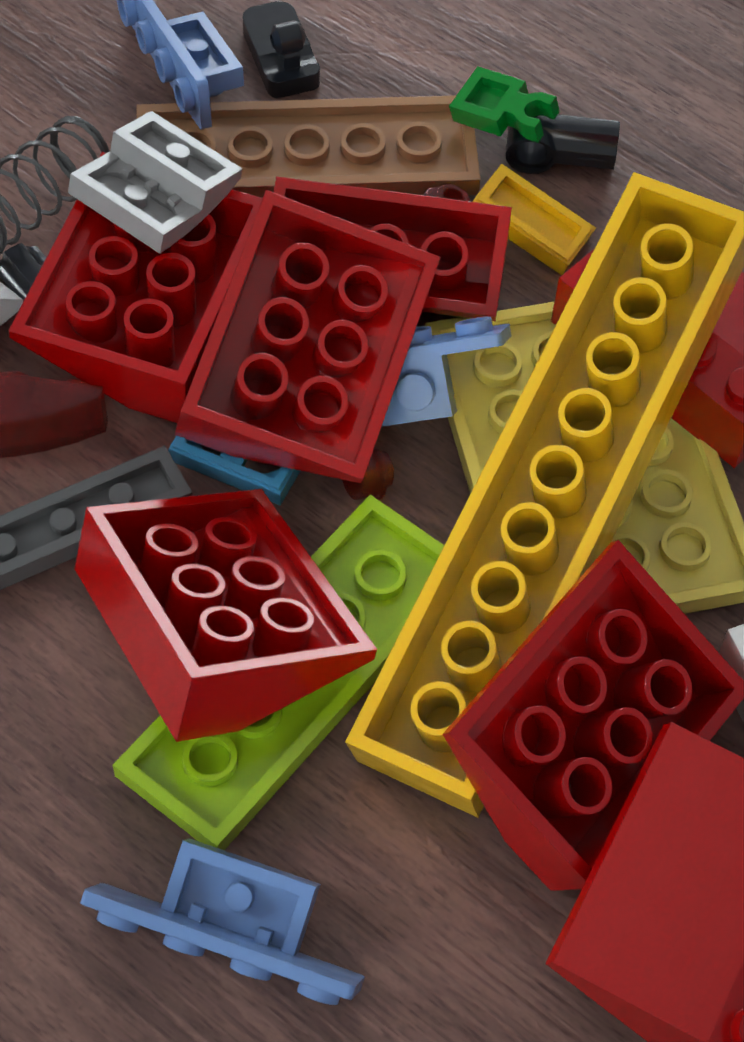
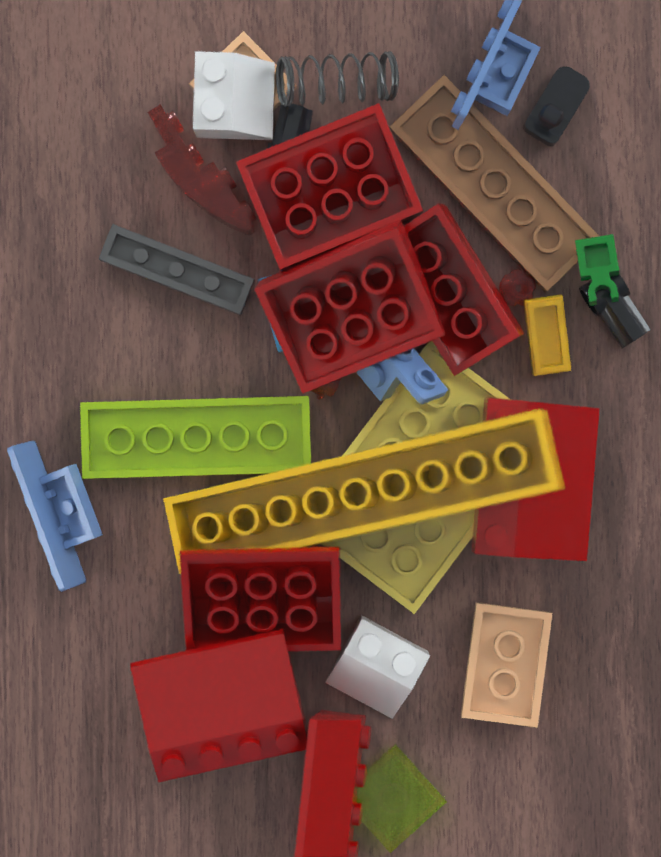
camera: 55 degrees right, 30 degrees up
(155, 181) = (379, 149): light grey slope -> none
(216, 608) = (187, 383): red slope -> none

